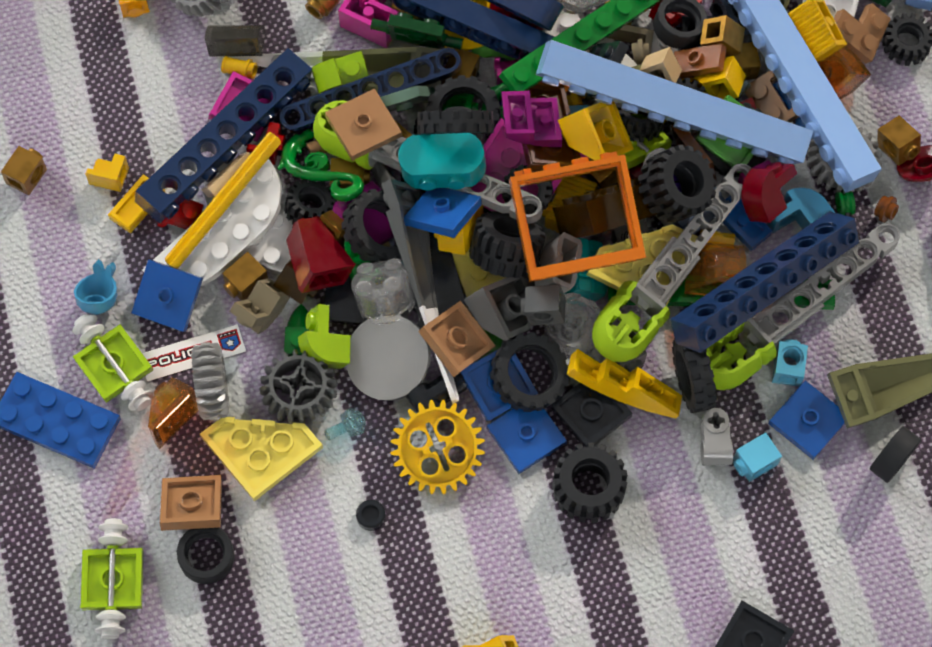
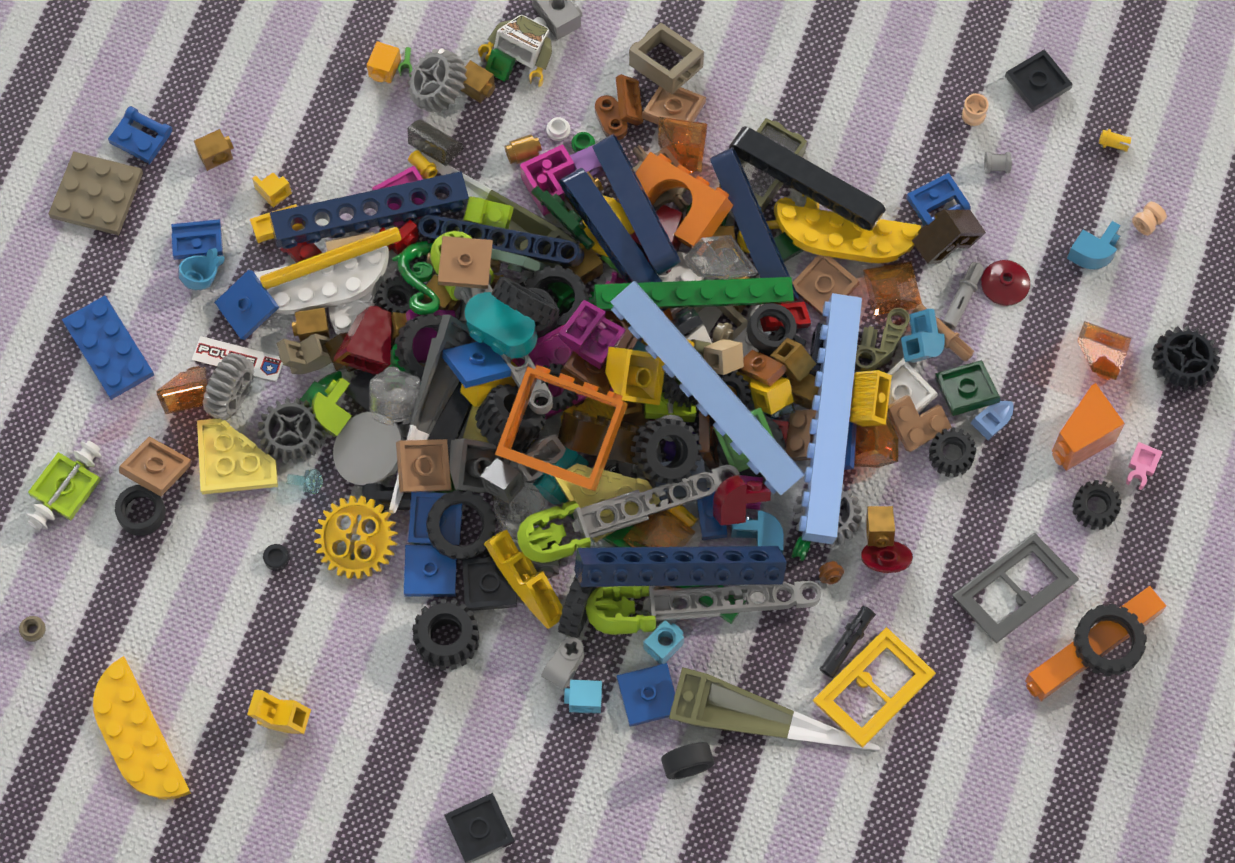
camera: 35 degrees right, 0 degrees up
(69, 264) = (196, 238): none -> blue plate
(112, 363) = (174, 330): lime plate -> none

